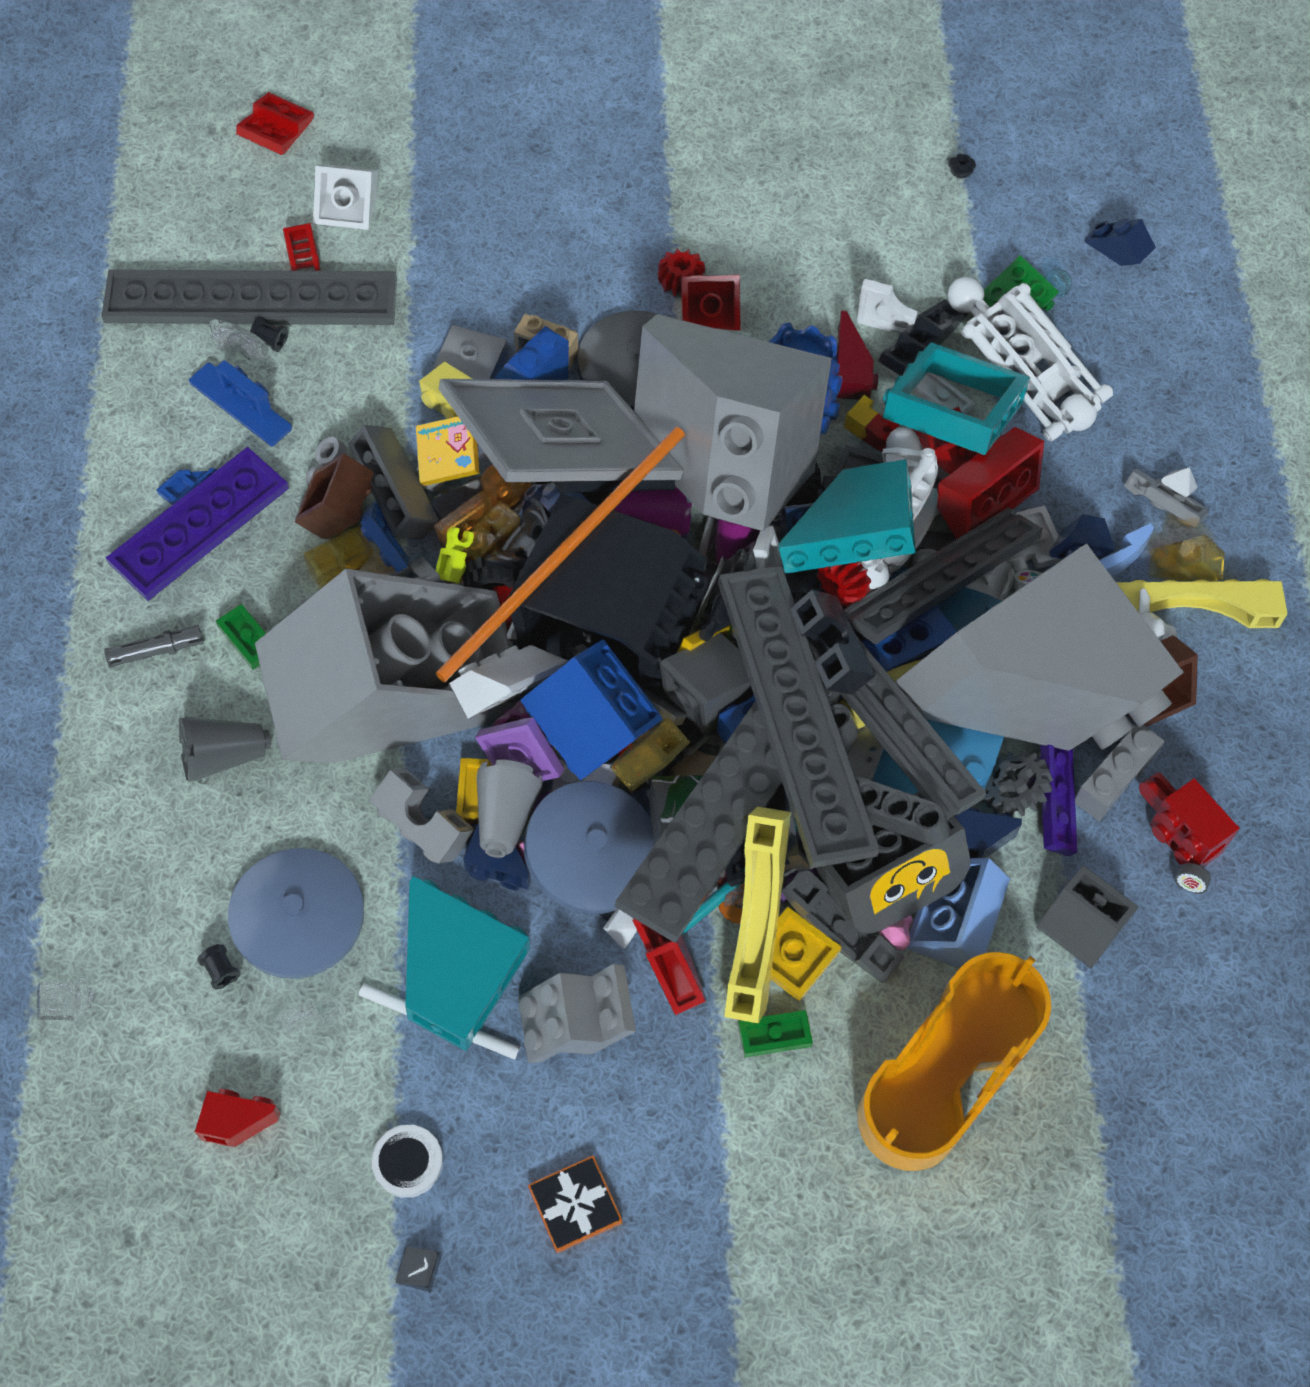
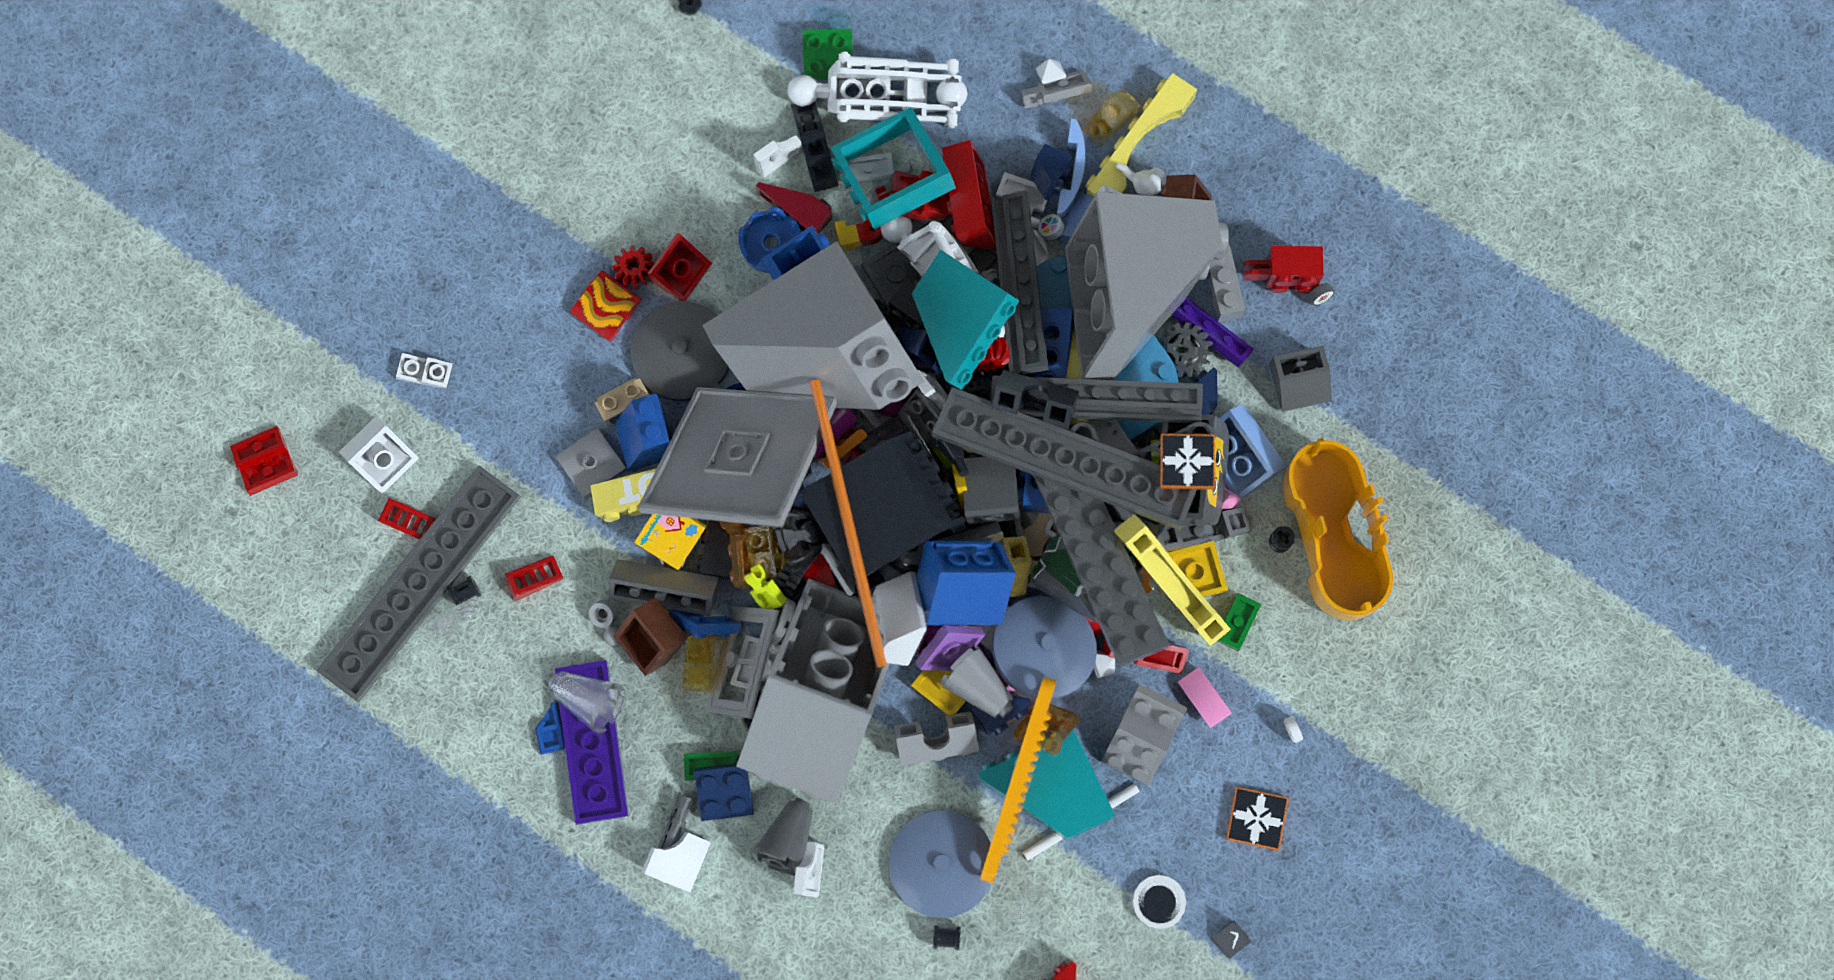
camera: 50 degrees left, 15 degrees up
(127, 669) = (678, 863): none -> white tile
(195, 787) = (809, 871): none -> white tile
(226, 661) = (723, 792): none -> dark blue plate
(233, 486) = (588, 698): none -> clear cone
(241, 399) = (508, 648): blue bracket -> none
(302, 379) = (527, 590): none -> red slope
(430, 910) = (1018, 784): none -> light orange gear
(450, 183) = (424, 371): none -> white slope
(522, 908) = (1059, 727): none -> clear orange plate
(627, 275) = (606, 305): none -> slope
(666, 1053) = (1204, 697): none -> bright pink slope
(702, 1172) = (1293, 729): none -> white tile
(887, 821) = (1187, 461): none -> black tile
(909, 1015) = (1280, 532): none -> black bush

